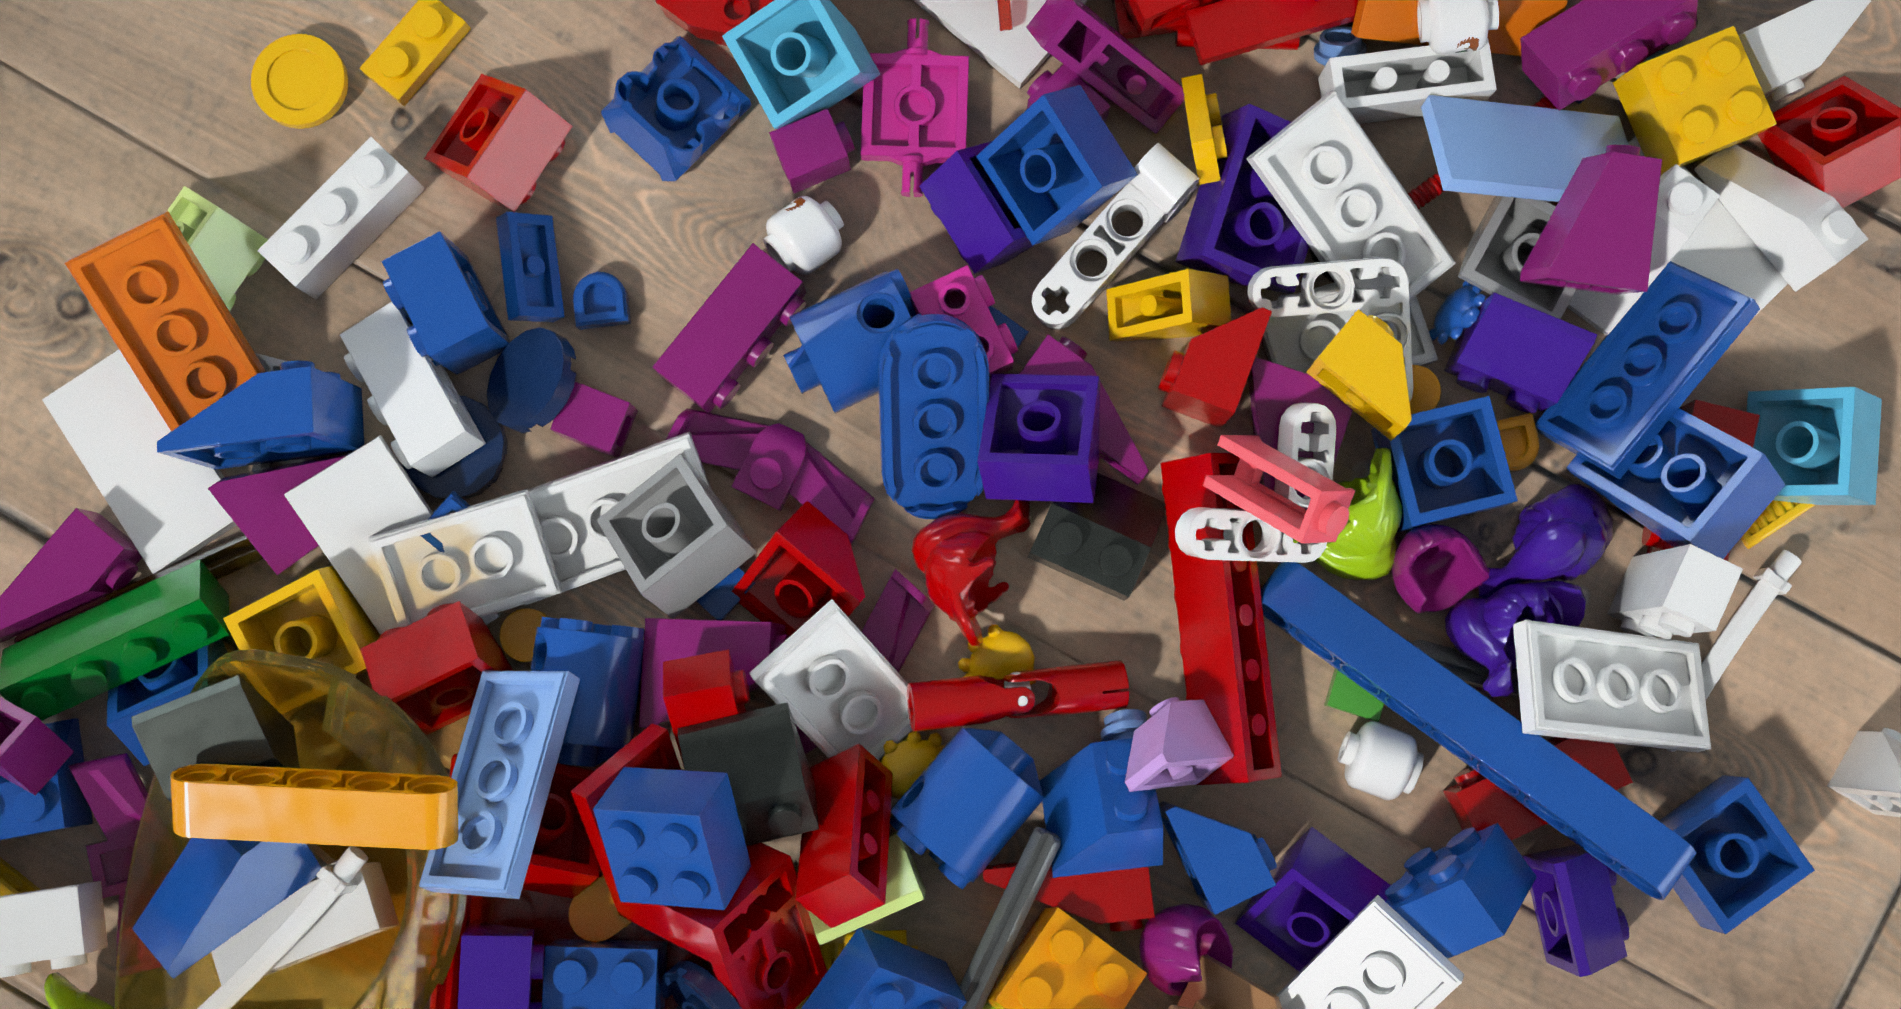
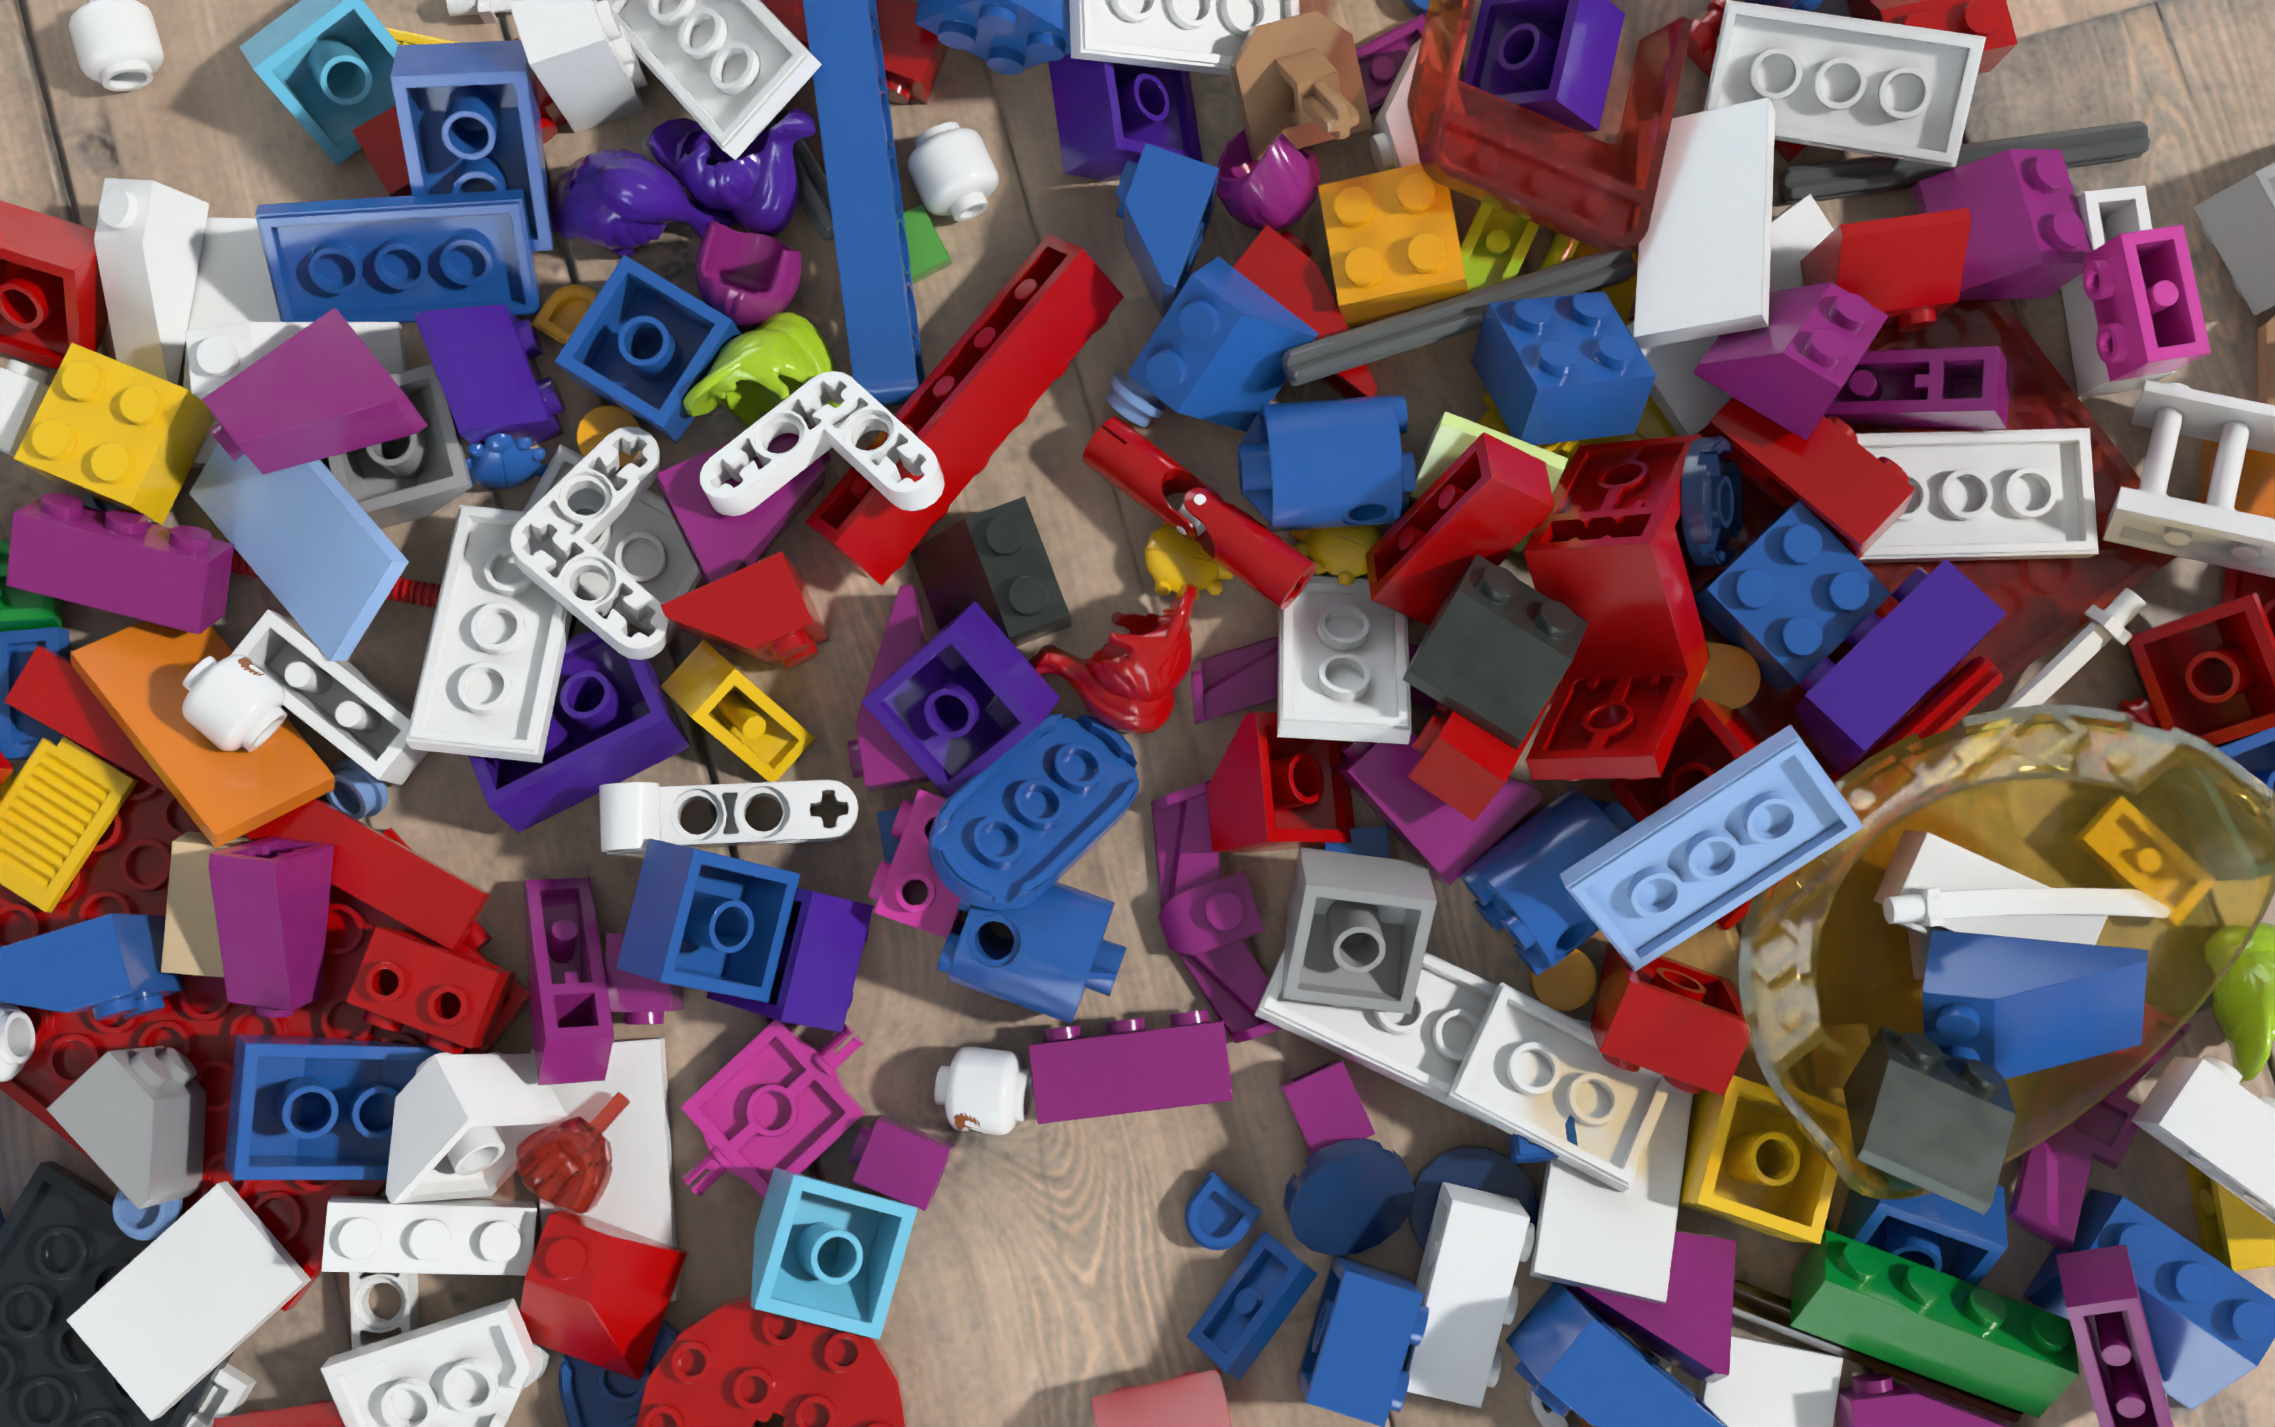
camera: 140 degrees left, 0 degrees up
(315, 806) = (1894, 977): light orange beam -> none
(673, 837) = (1610, 654): blue brick -> none
(674, 108) = (983, 1326): blue slope -> none
(1176, 746) = (1112, 337): lavender slope -> none
(1206, 141) = (558, 814): yellow plate -> none
(1329, 501) = (833, 437): coral window -> none
(1367, 373) = (635, 476): yellow slope -> none

